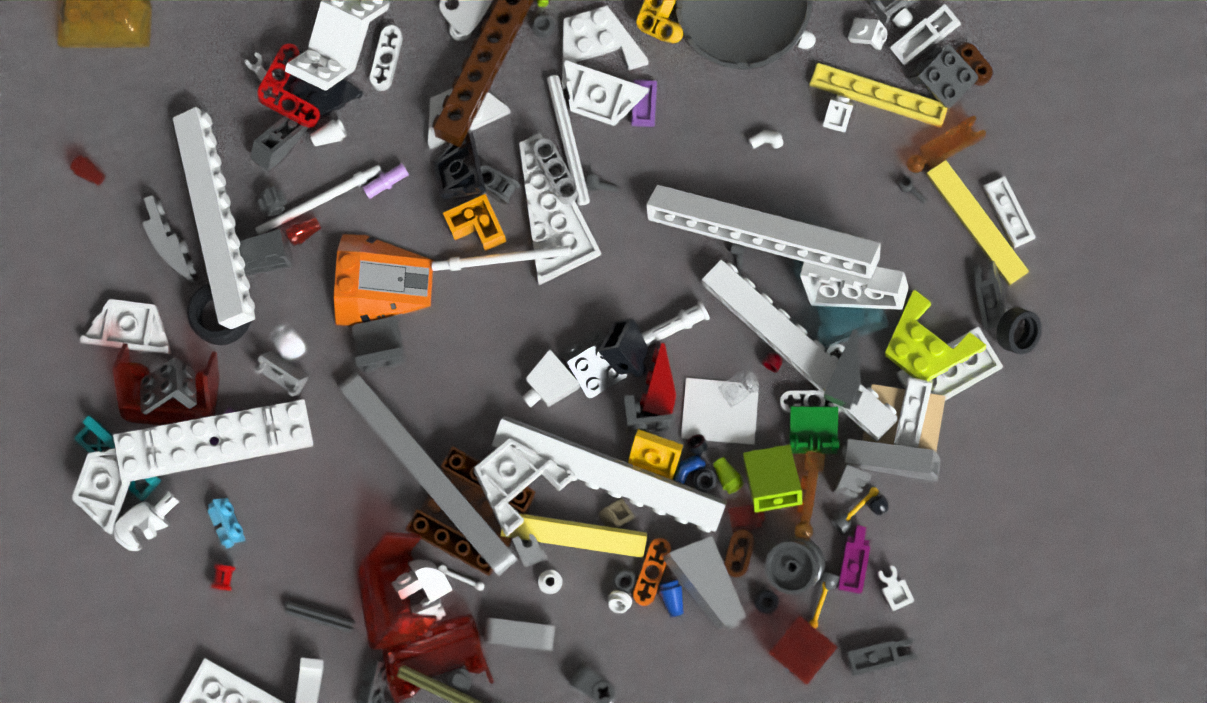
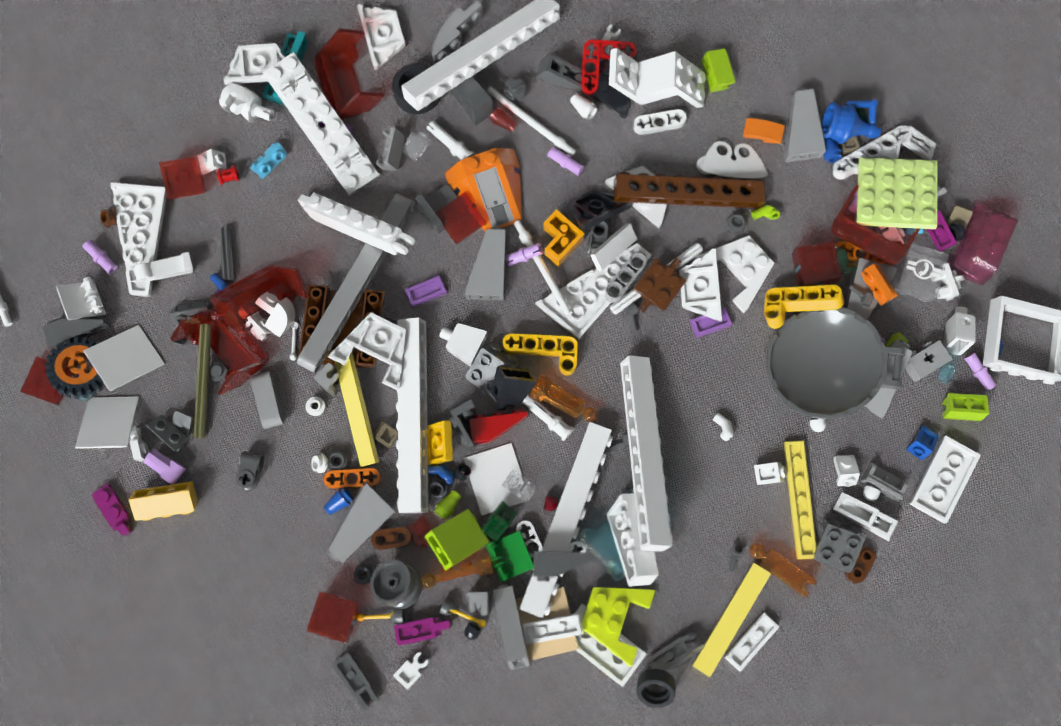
camera: 60 degrees right, 0 degrees up
(168, 381) = (350, 77): dark grey bracket -> none
(196, 592) = (211, 160): none -> white bracket
(202, 632) = (182, 177): none -> clear red plate
(313, 297) = (456, 147): none -> white pin
(354, 637) = (218, 281): none -> blue arm
(358, 445) = (356, 224): none -> white hinge
(402, 325) = (461, 218): none -> clear red plate
(469, 402) = (426, 291): none -> medium lavender tile
(477, 272) = (524, 254): none -> lavender pin
(477, 319) = (489, 268): none -> light grey slope
(513, 169) = (613, 246): none -> white tile
(579, 138) = (659, 285): none -> reddish brown plate
(585, 297) = (540, 350): none -> yellow beam
(662, 300) = (561, 399): none -> clear orange plate
(770, 424) = (499, 521): none -> dark green hips

